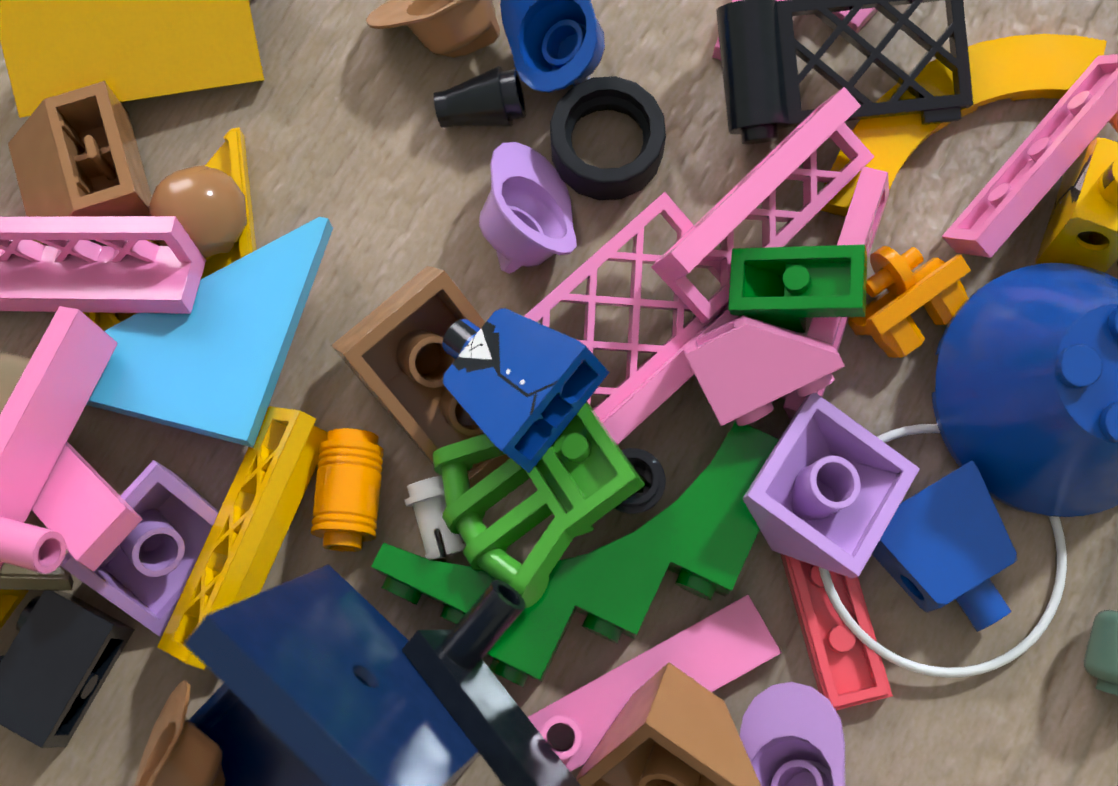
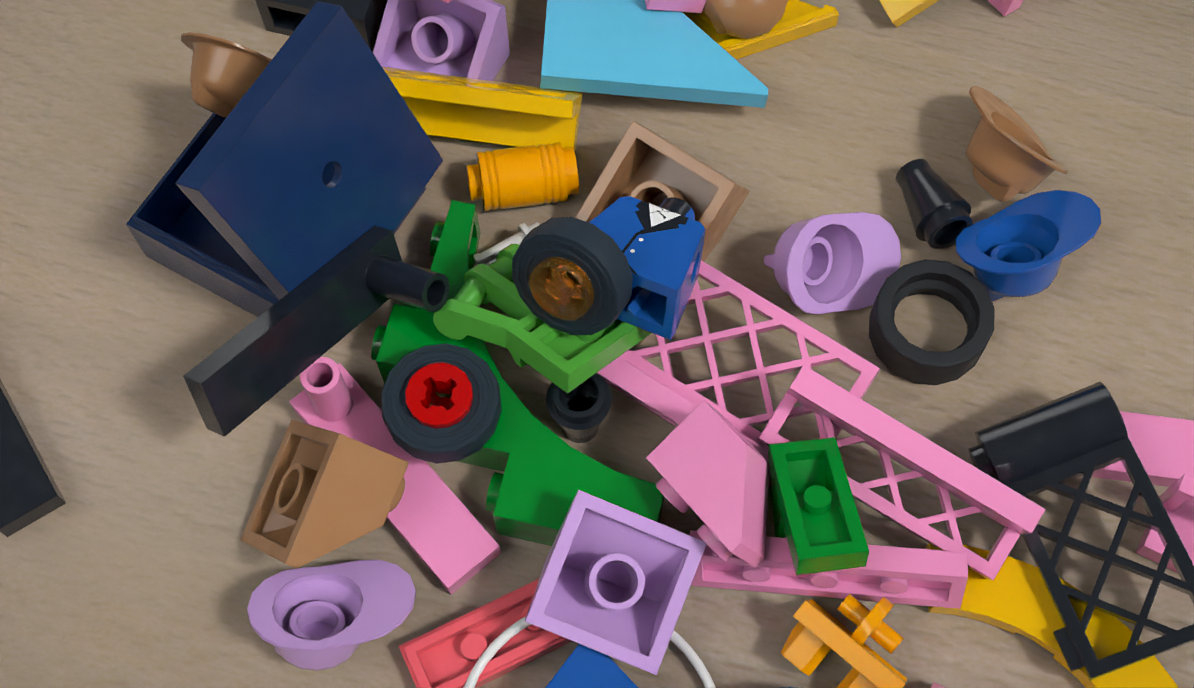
camera: 75 degrees right, 10 degrees down
(541, 446) = (572, 276): none -> black wheel
(605, 645) = (452, 425): none -> black wheel

